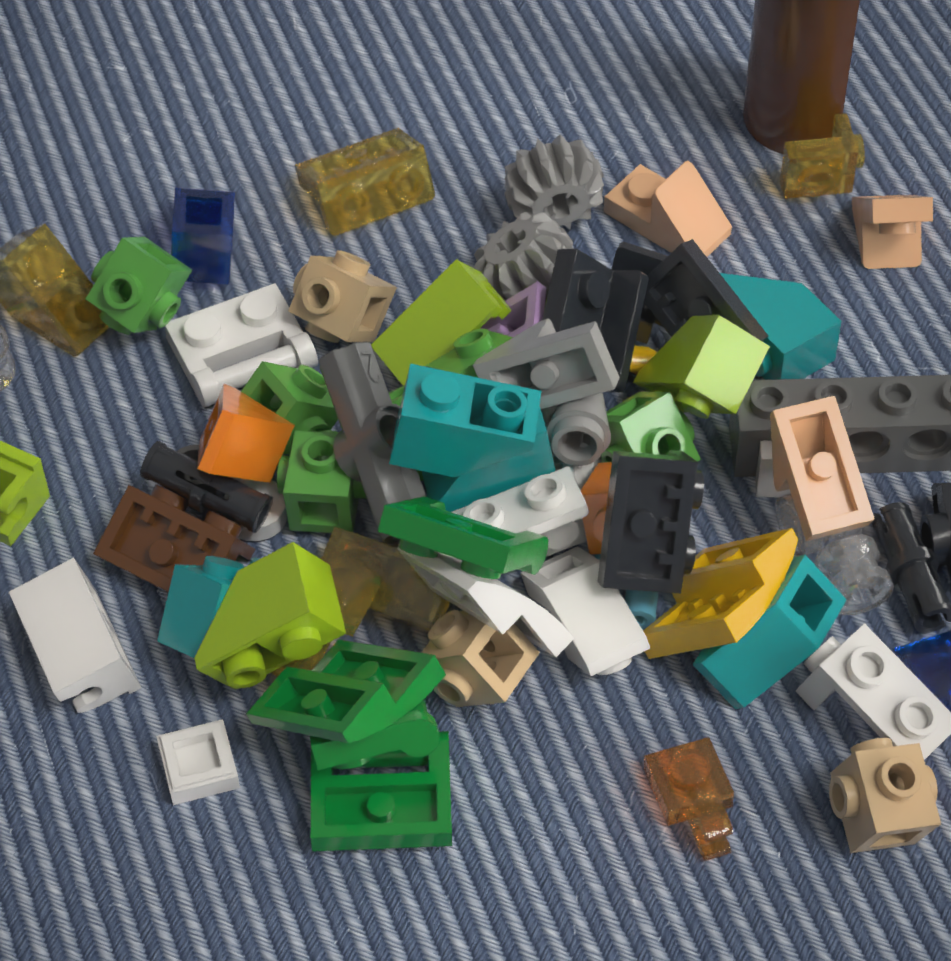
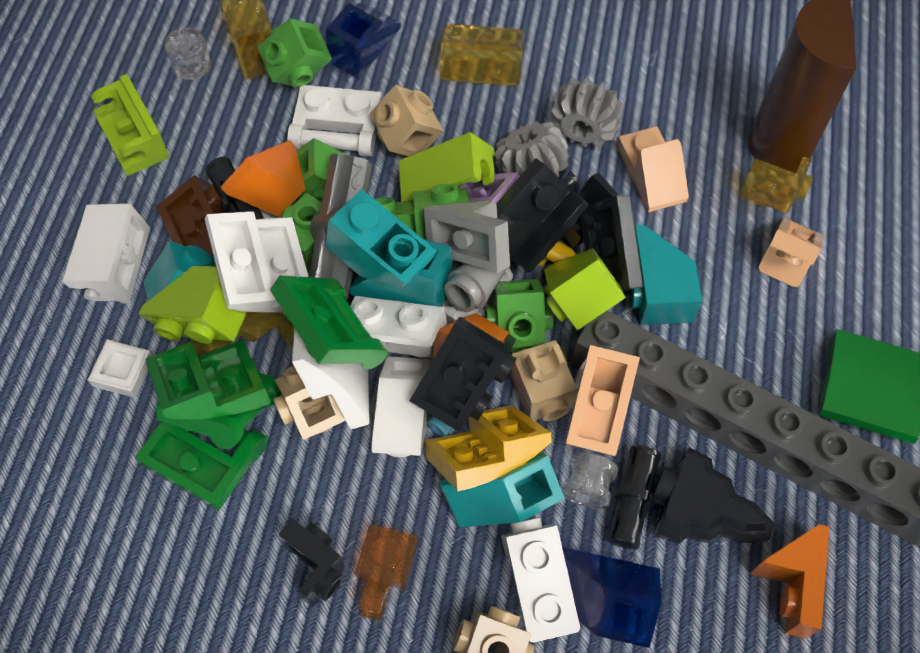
camera: 30 degrees right, 10 degrees up
(322, 520) = (252, 257): none -> white slope
(610, 818) = (313, 548): none -> black bracket
(735, 496) = (543, 381): none -> tan brick

